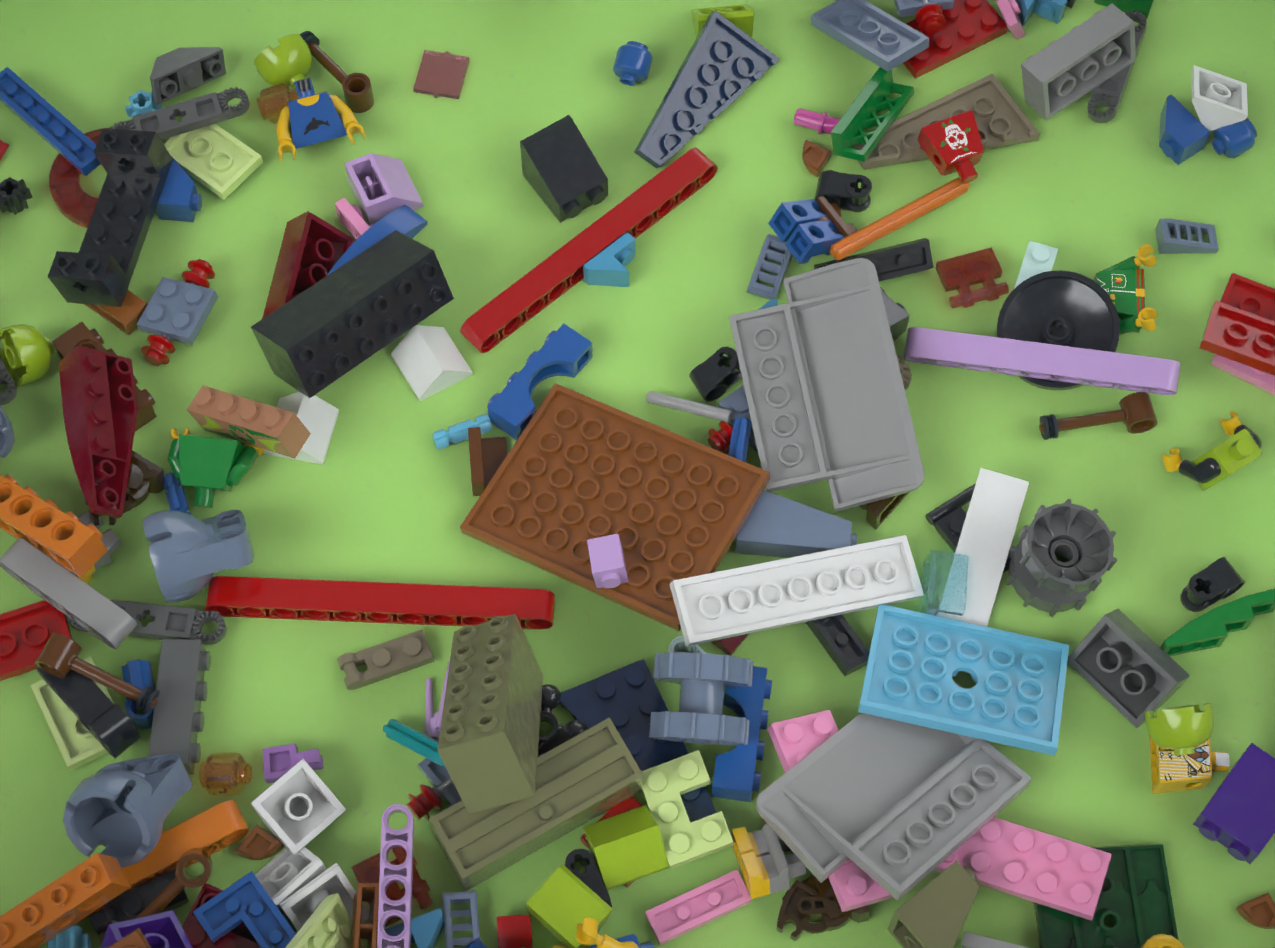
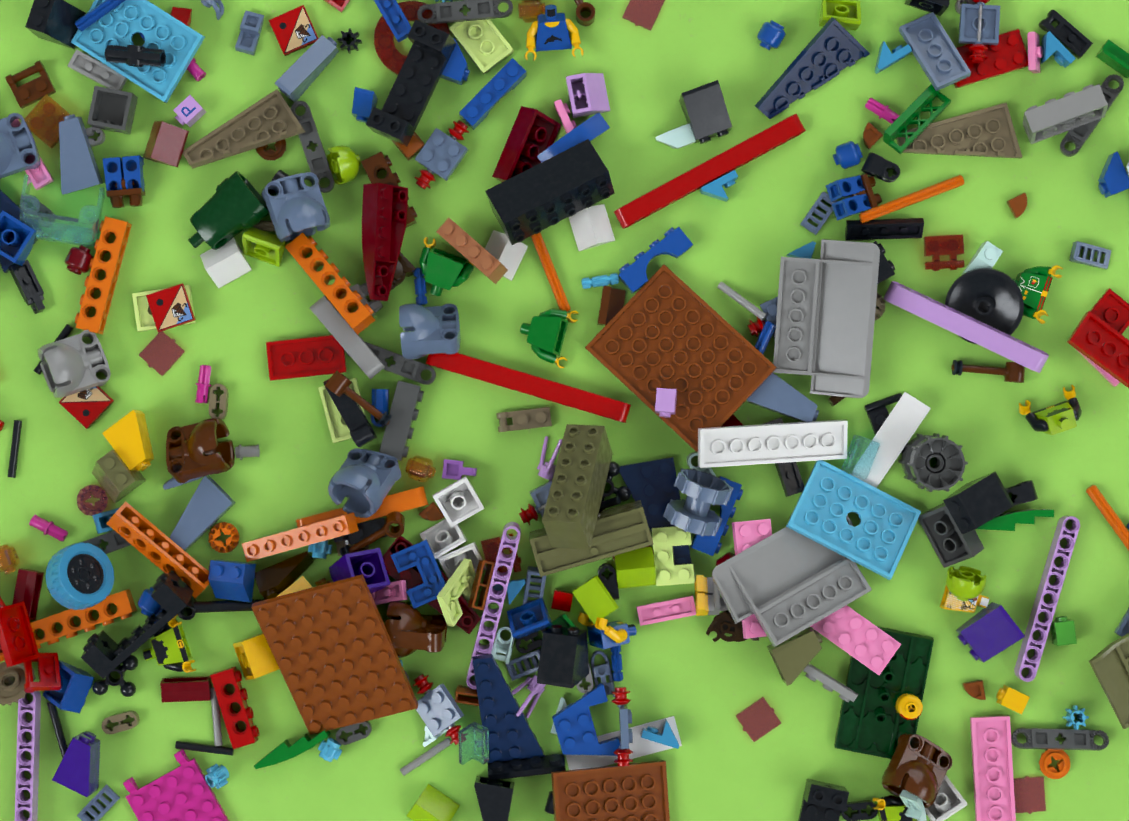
camera: 15 degrees right, 25 degrees up
(40, 253) = (363, 104): none -> blue slope
(222, 237) = (492, 92): none -> blue arch
(379, 433) = (550, 272): none -> orange axle
(395, 519) = (548, 333): none -> green torso
(413, 740) = (532, 479): teal axle -> none
(531, 215) = (677, 137): none -> light aqua slope
(716, 374) = (764, 283): black piece -> none
(788, 183) = (847, 155): none -> blue head
(808, 57) = (886, 58): none -> dark azure slope
(953, 145) = (962, 157): red torso -> none
(1056, 197) = (1018, 205): none -> dark orange tile
(1154, 600) = (978, 502): none -> black slope

